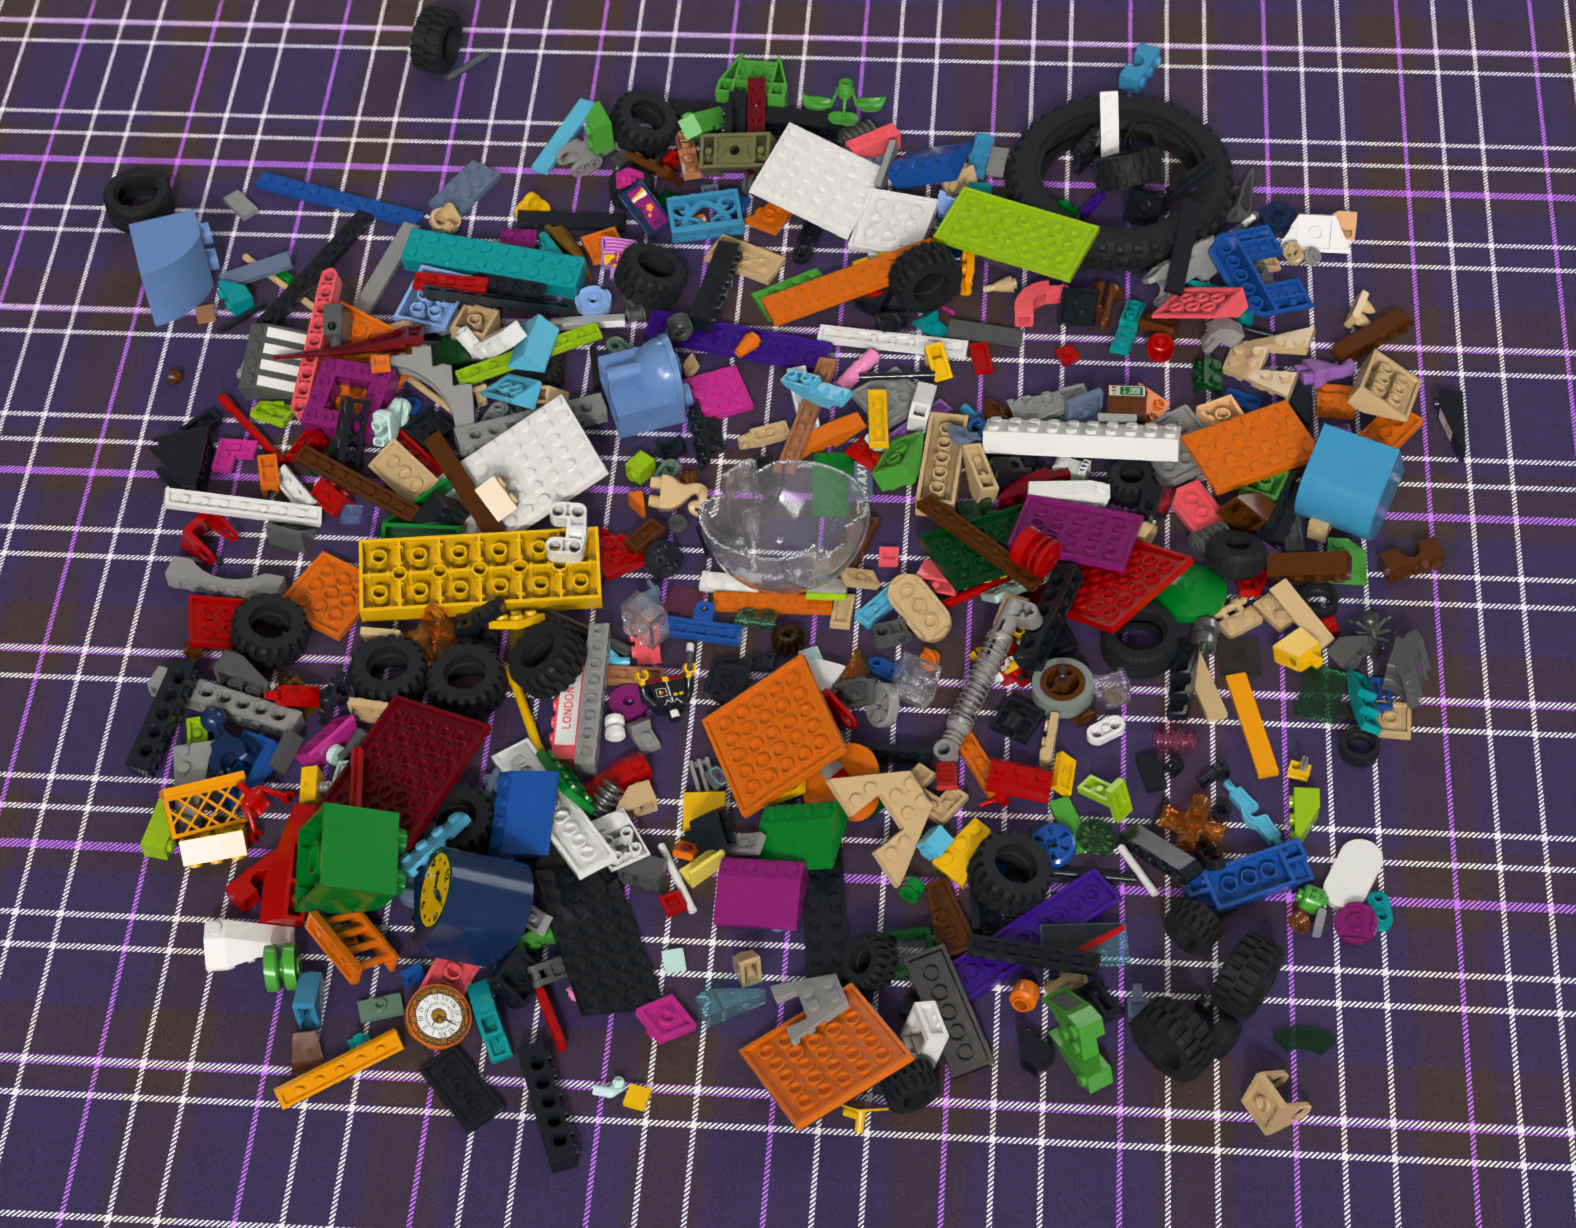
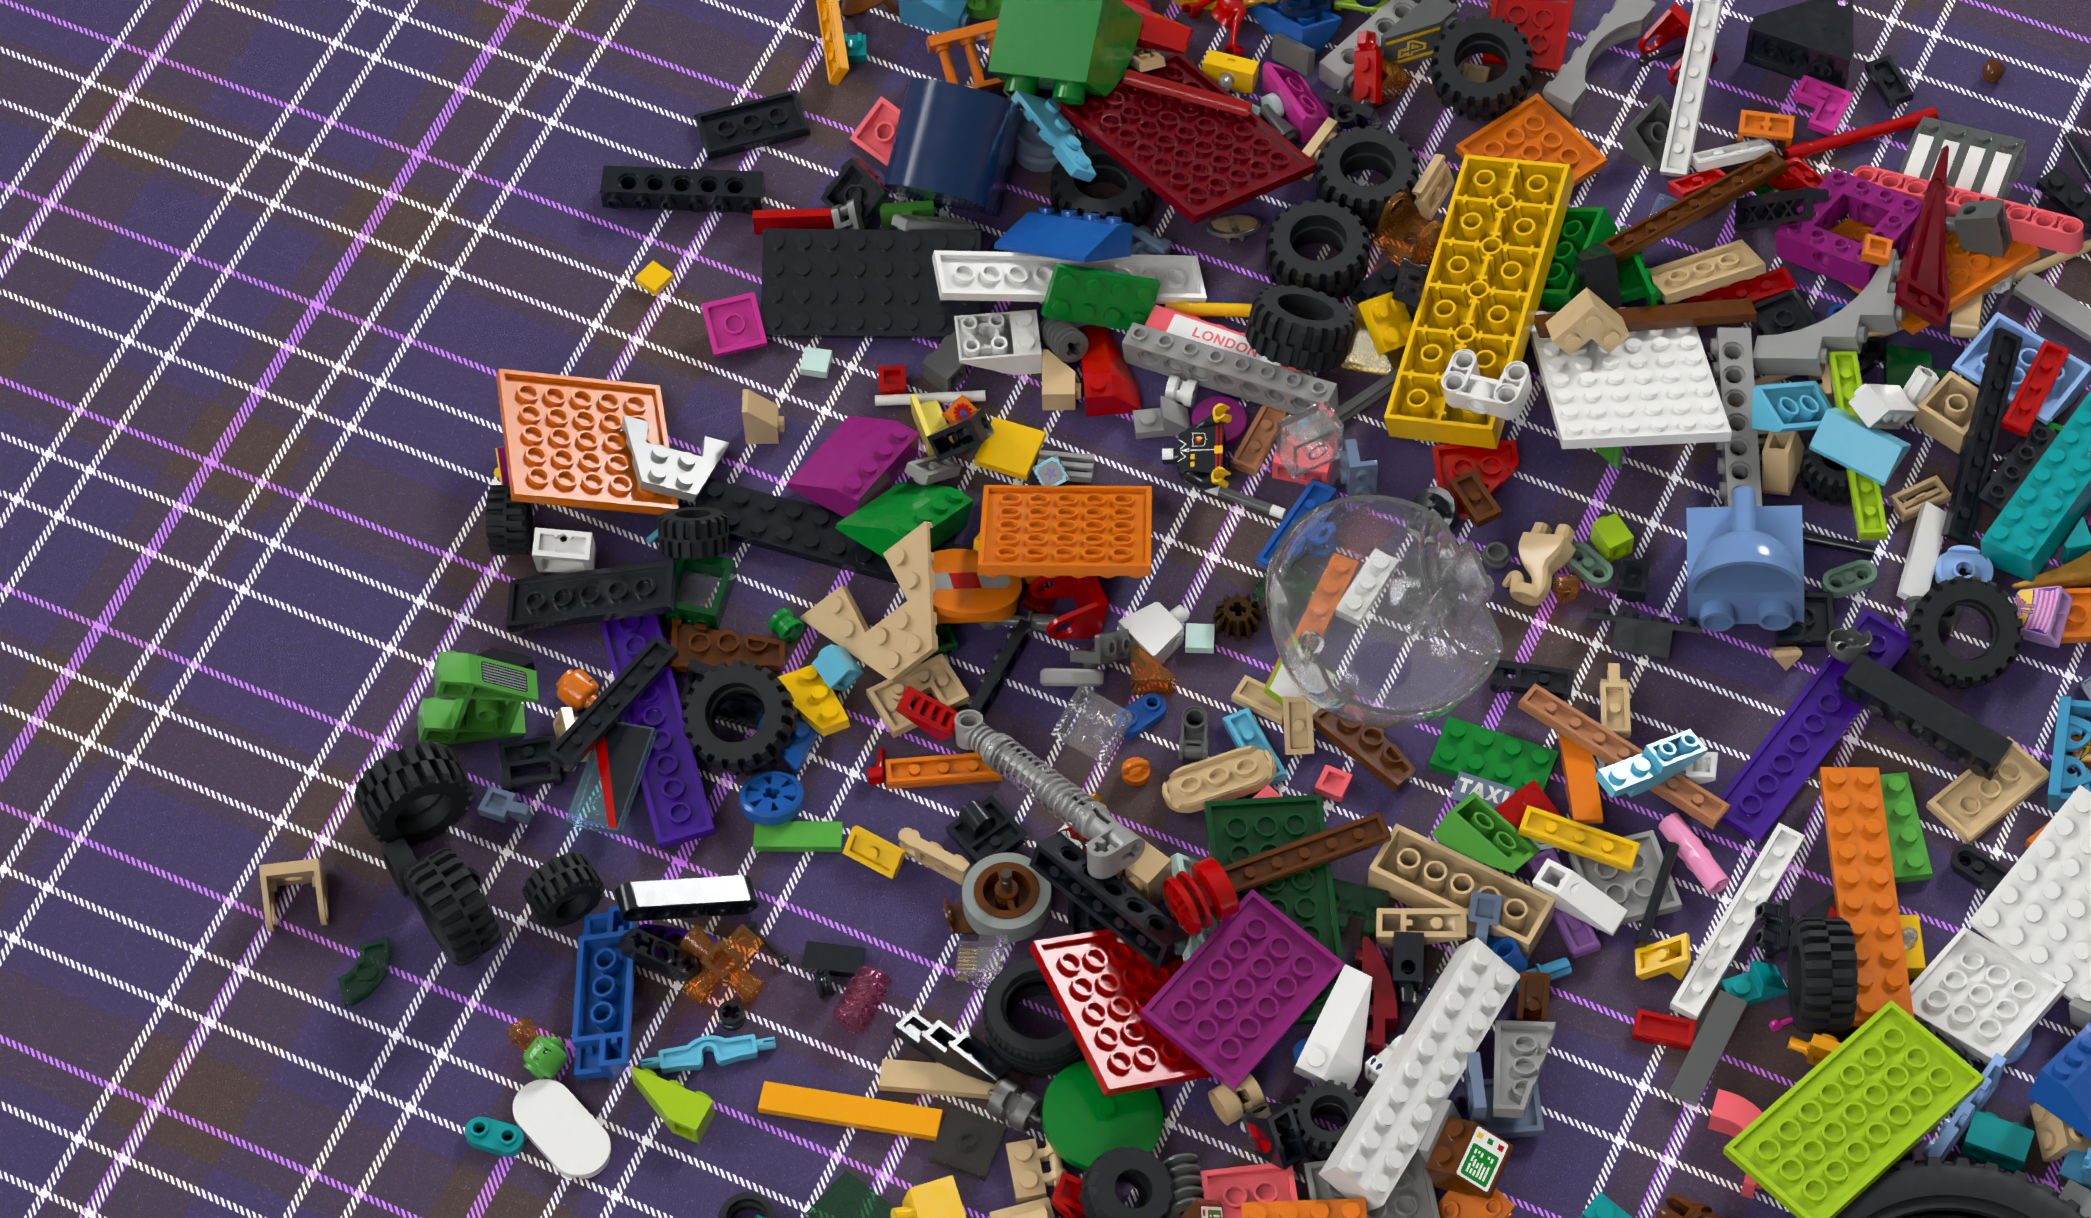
camera: 110 degrees right, 5 degrees up
(274, 412) = (1884, 154): lime wing -> none
(380, 1008) = (895, 75): sand green plate -> none
(389, 421) = (1792, 262): light aqua hips -> none
(438, 1016) = (847, 115): tile -> none
(489, 1021) = (815, 157): teal slope -> none
(610, 1091) = (675, 255): light aqua arm -> none
(636, 502) = (1548, 514): orange slope -> none
(720, 392) = (1722, 674): dark pink plate -> none
(725, 1003) = (727, 386): clear light blue slope -> none
(730, 675) = (1204, 536): black wing -> none
(747, 344) = (1790, 724): orange cone -> none
(1019, 780) = (891, 793): red slope -> none
(1067, 355) = (1625, 1147): red plate -> none
(1078, 306) = (1701, 1181): black hinge -> none
(1097, 837) = (760, 853): clear green tile -> none
(1104, 730) = (922, 931): white plate -> none
(1110, 795) = (813, 883): lime bracket -> none
(1114, 877) = (707, 841): black bar -> none
(1216, 773) = (791, 1031): black pin -> none
(1299, 770) = (747, 1140): yellow piece -> none
(1319, 922) = (509, 1052): light grey tile -> none
(1356, 923) = (486, 1094): magenta tile -> none

